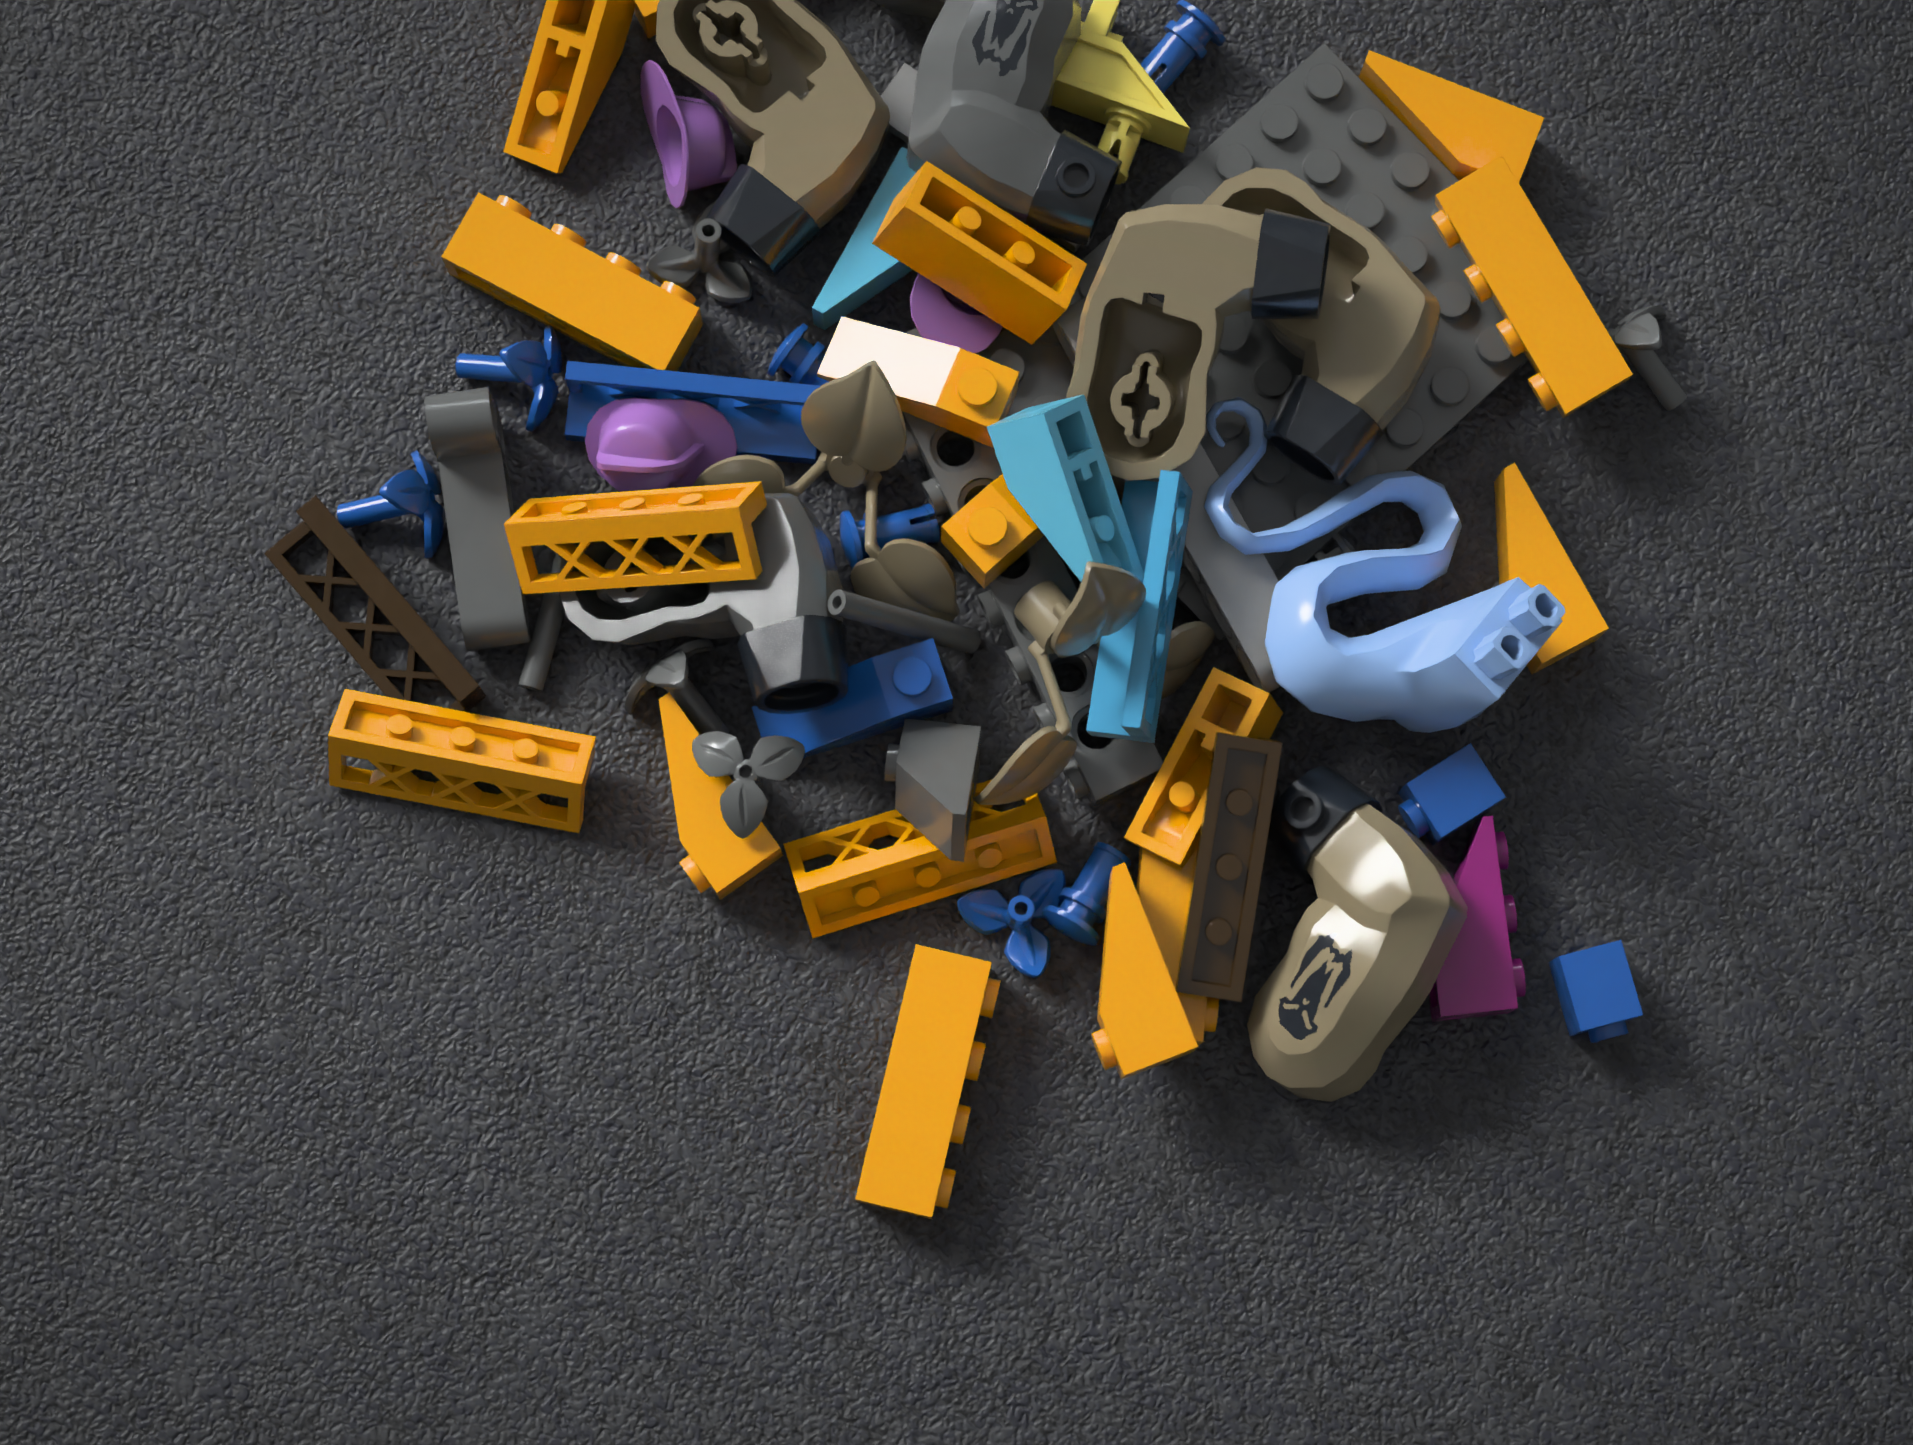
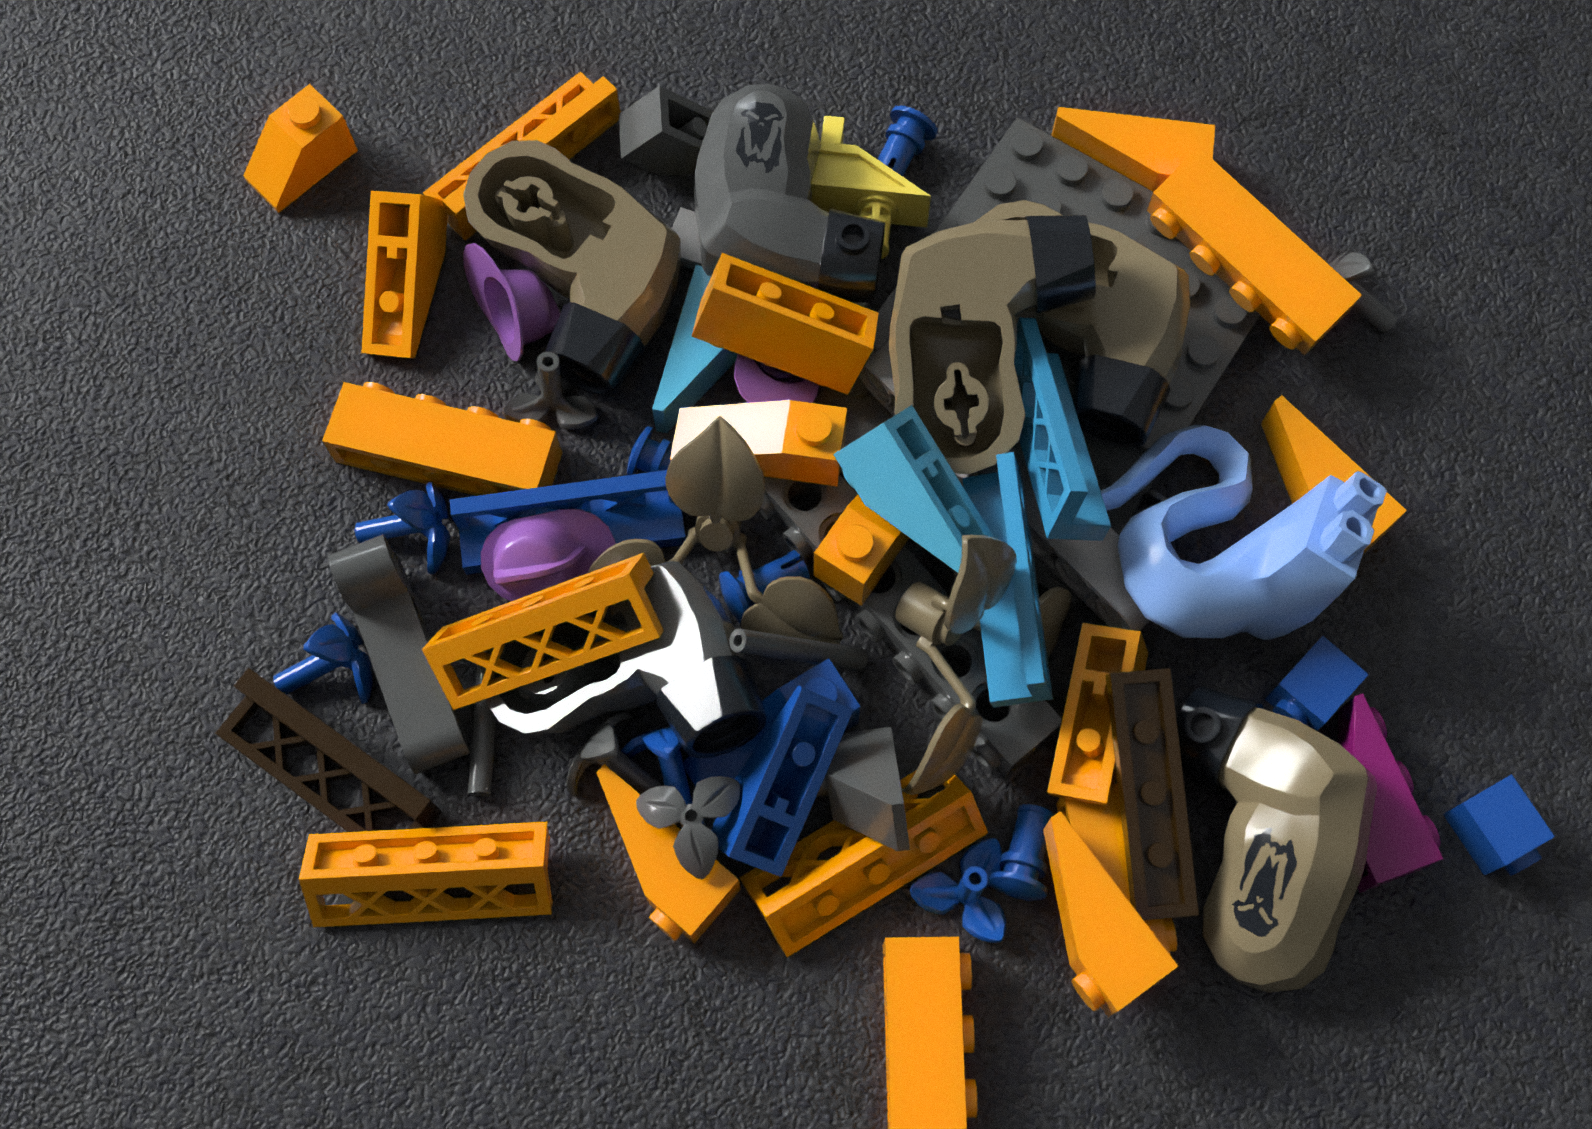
camera: 10 degrees left, 10 degrees down
(736, 689) = (667, 748): none -> blue plant
(849, 758) = (782, 781): none -> blue slope
(1233, 463) = (1055, 444): none -> dark azure fence

